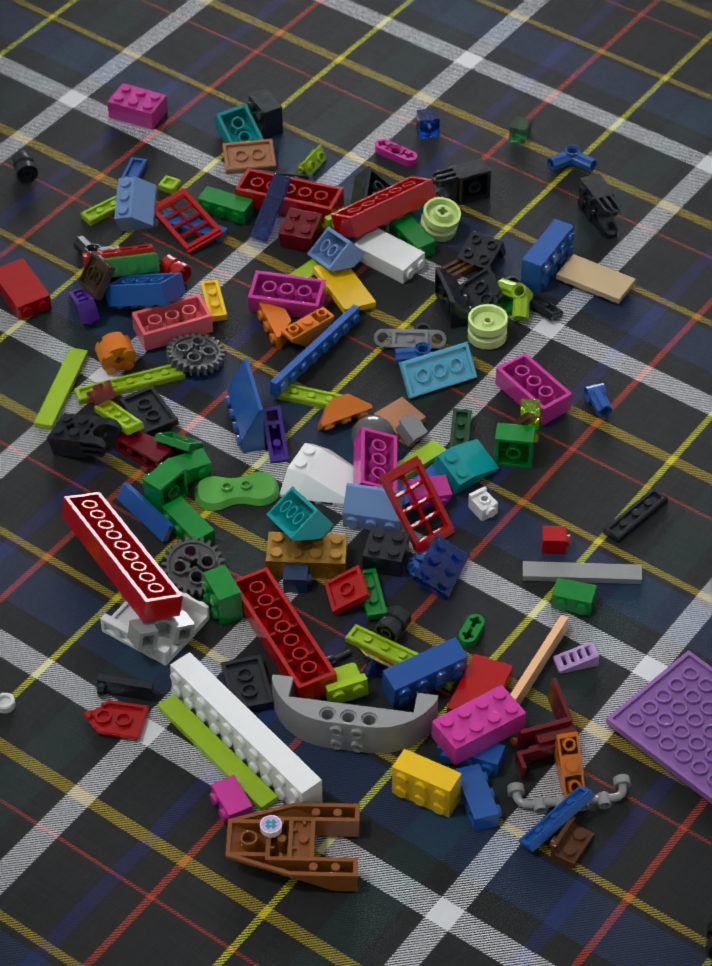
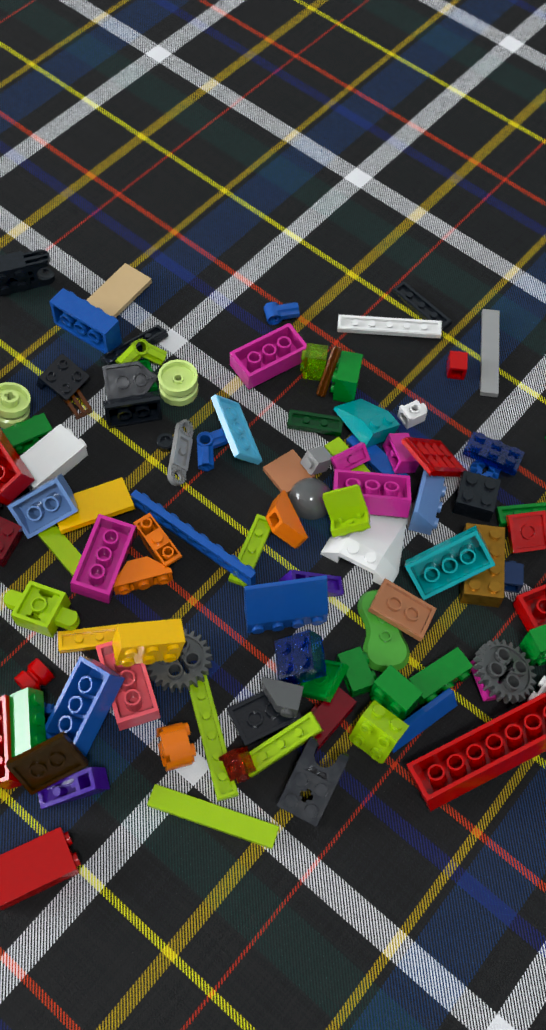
camera: 90 degrees left, 15 degrees up
(131, 474) = (378, 732): none -> lime bracket
(159, 413) = (283, 696): none -> dark grey slope
(196, 312) = (148, 642): none -> yellow brick
(197, 421) = (300, 657): none -> clear blue brick
(235, 265) = (45, 601): none -> lime brick
(253, 497) = (402, 609): none -> nougat tile
(346, 448) = (347, 510): none -> lime bracket
(412, 447) = (351, 457): none -> dark pink plate
(573, 596) = (523, 359): green brick -> none
(598, 486) = (389, 326): none -> white tile

